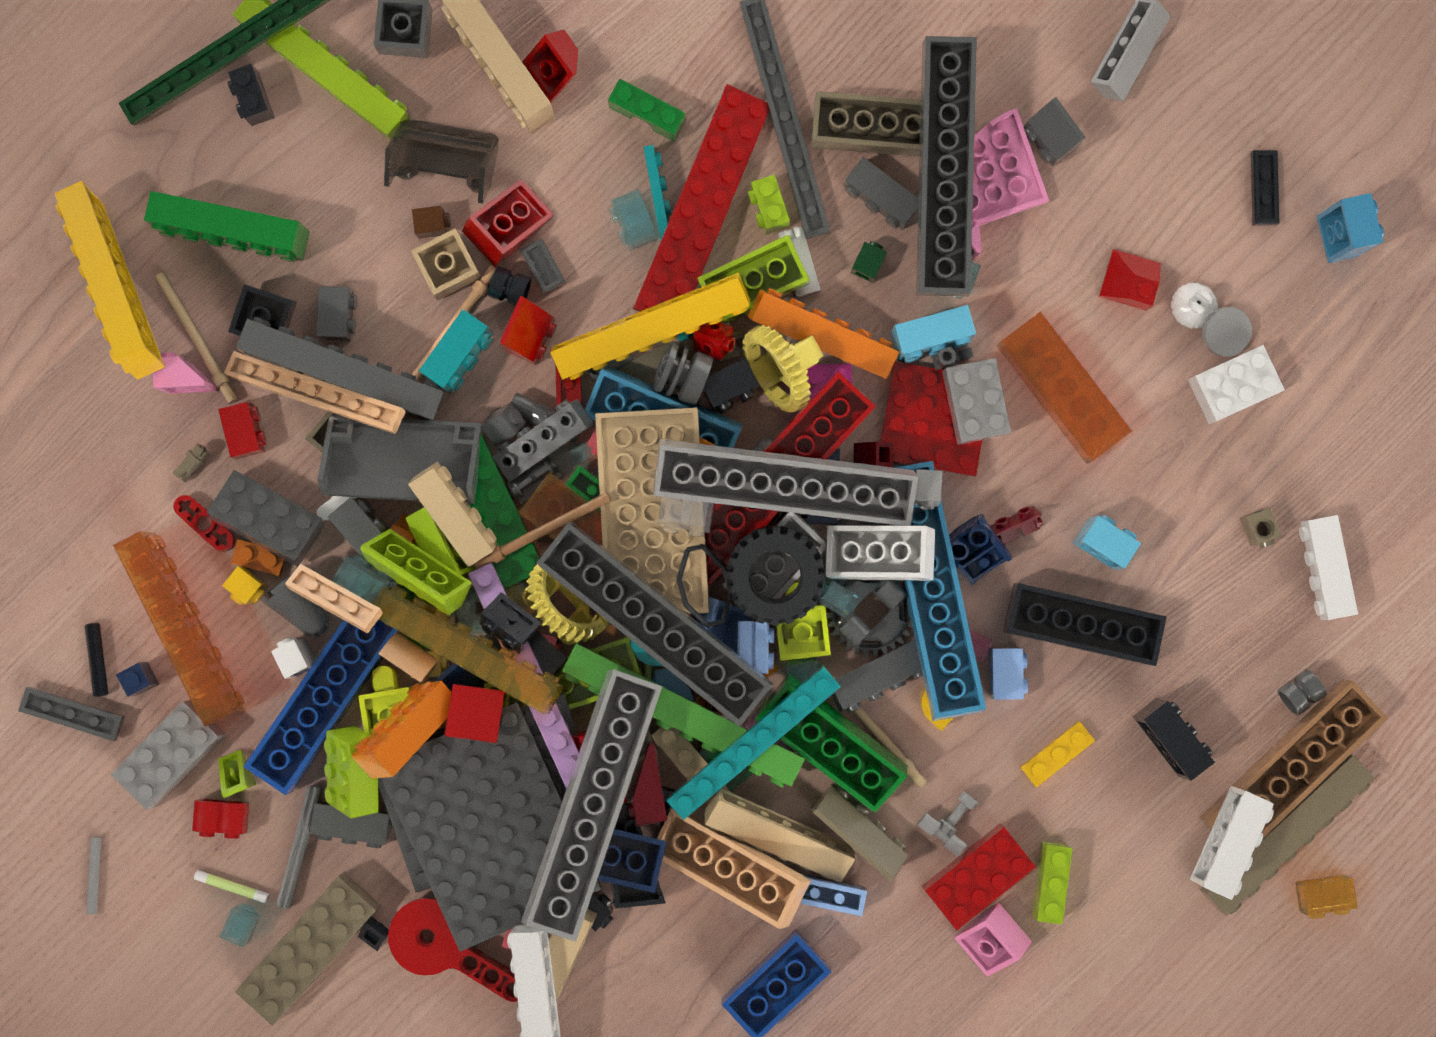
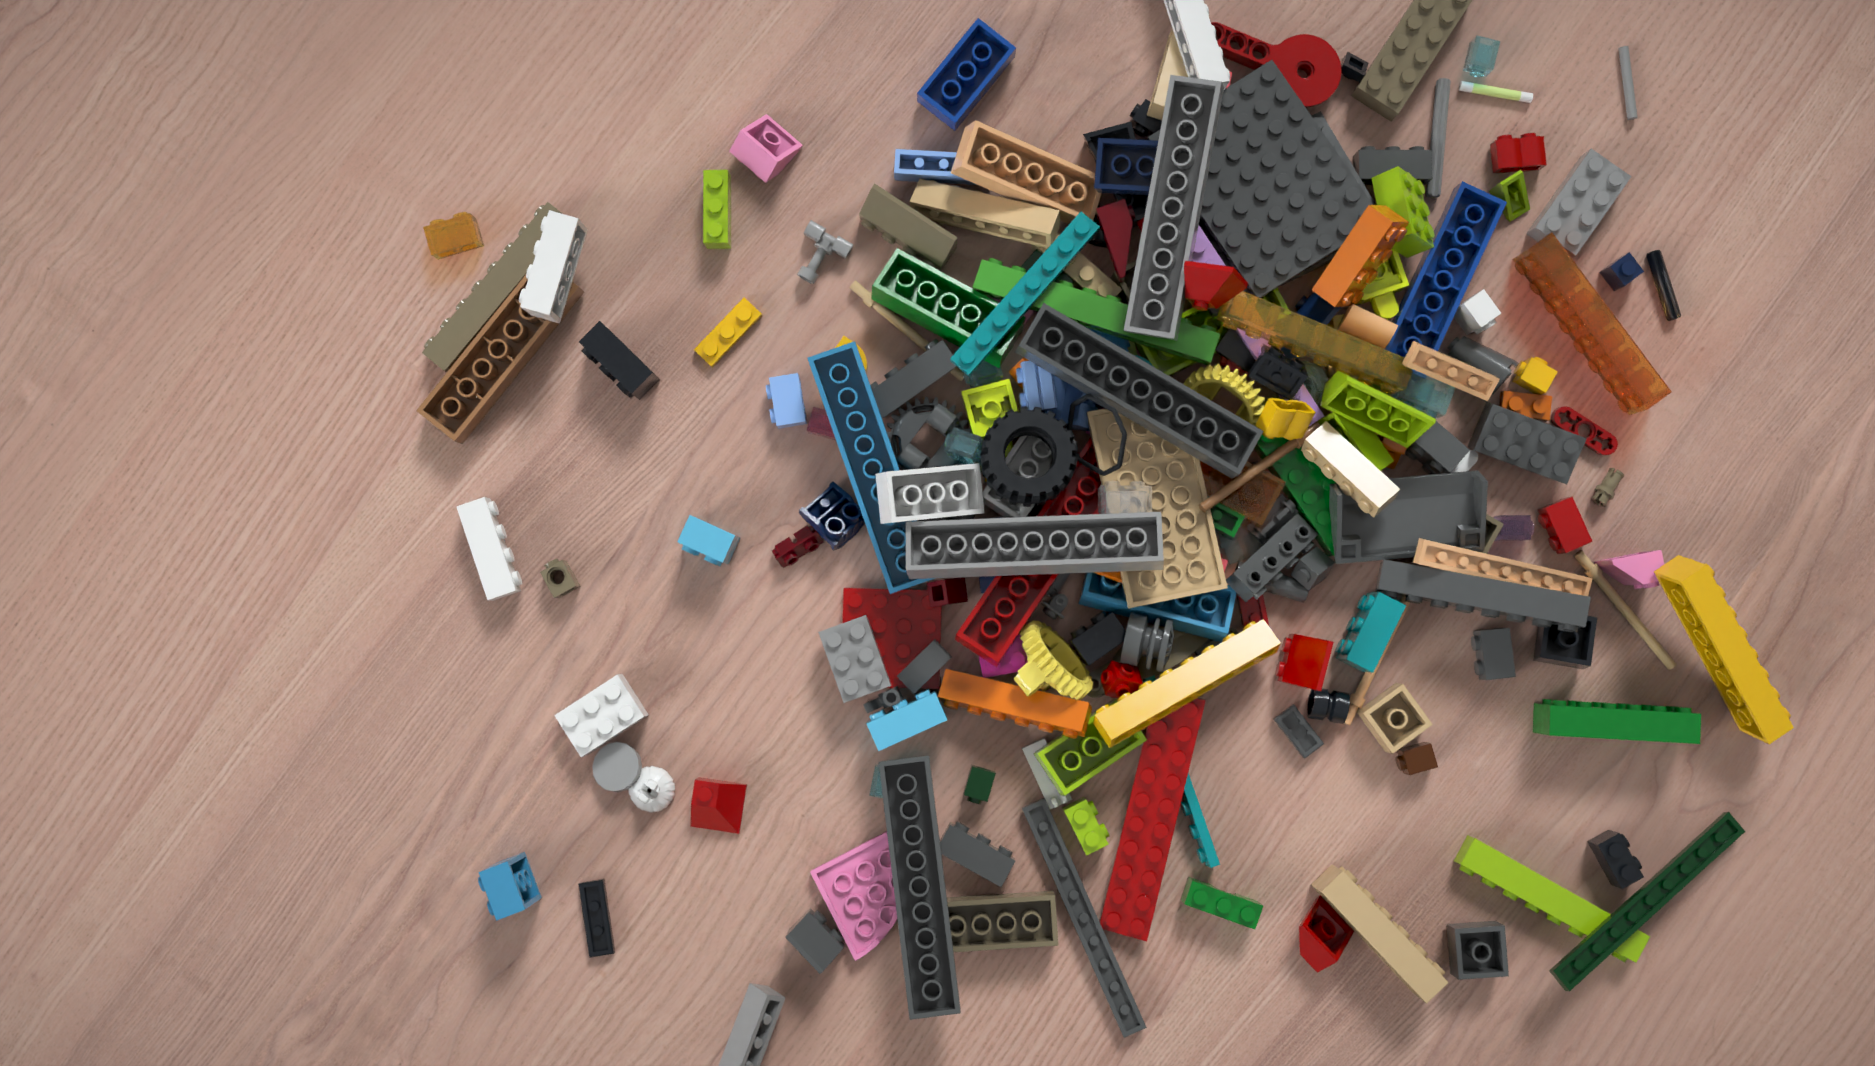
camera: 170 degrees right, 0 degrees up
(71, 713) = (1678, 230): dark grey plate -> none
(292, 435) = (1515, 527): none -> clear purple brick
(442, 151) = (1417, 832): clear smoke windscreen -> none
(474, 713) = (1297, 280): red tile -> none
(506, 222) = (1341, 769): red slope -> none
(510, 574) = (1285, 418): none -> yellow brick
(567, 717) = (1211, 284): none -> red slope
(633, 220) = (1217, 790): clear light blue brick -> none
(767, 424) = (1055, 606): none -> dark grey hinge
(907, 384) = (924, 666): none -> dark grey slope
(928, 489) = (892, 563): light grey brick -> none
(976, 242) = (878, 819): bright pink slope -> none
(978, 876) = (788, 204): red brick -> none
(1064, 388) = (770, 686): clear orange brick -> none
(1084, 624) = (719, 458): black brick -> none
(1298, 694) = (498, 426): dark grey wheel -> none

